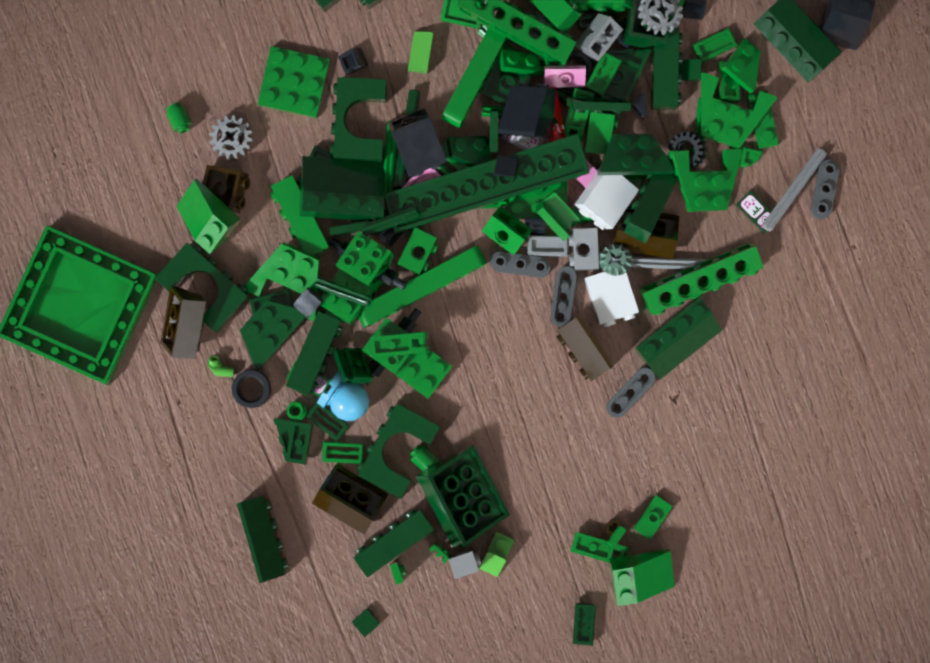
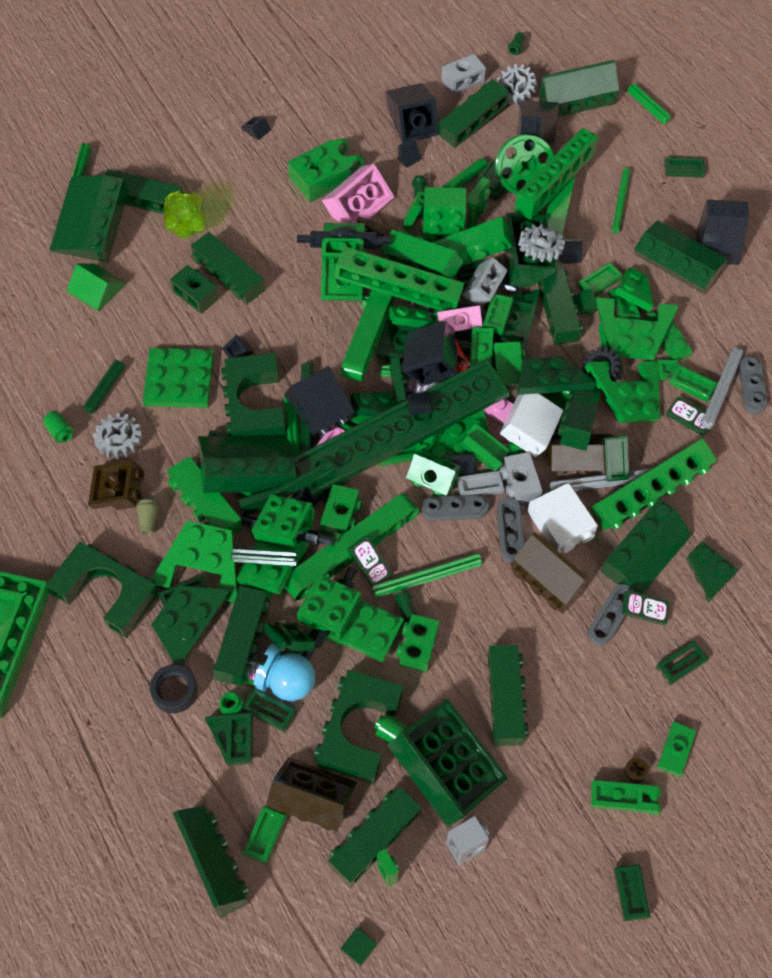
camera: 15 degrees left, 25 degrees down
(183, 323) = (84, 623): dark brown slope -> none
(206, 216) = (100, 513): green slope -> none
(218, 368) = (131, 674): bright green arm -> none
(224, 79) = (103, 386): none -> dark green axle
(248, 224) = (147, 515): none -> olive cone
(307, 302) = (226, 577): slope -> none
(307, 523) = (264, 835): none -> green tile
(342, 444) = (293, 743): green tile -> none
(398, 344) = (339, 595): green plate -> none
(420, 52) = (306, 330): bright green slope -> none
(433, 306) = (369, 561): none -> tile
(440, 551) = (433, 836): green tile -> none
(457, 351) = (405, 604): none -> dark green pin
(465, 389) = (422, 643): none -> green brick
(482, 325) = (426, 575): none -> green axle
(496, 554) = (503, 828): bright green slope -> none
(523, 447) = (506, 695): none -> dark green brick
(598, 105) = (500, 335): dark green plate -> none
(615, 268) = (558, 484): sand green gear -> none
(616, 536) = (642, 772): green tile -> none
(639, 106) = (542, 339): black slope -> none
(641, 576) = (684, 817): green slope -> none
(660, 393) = (645, 607): none -> tile
(663, 451) = (667, 673): none -> dark green tile
(672, 251) = (616, 458): none -> tile
(728, 366) = (710, 570): none -> dark green wing
(769, 178) = (693, 383): none -> green plate

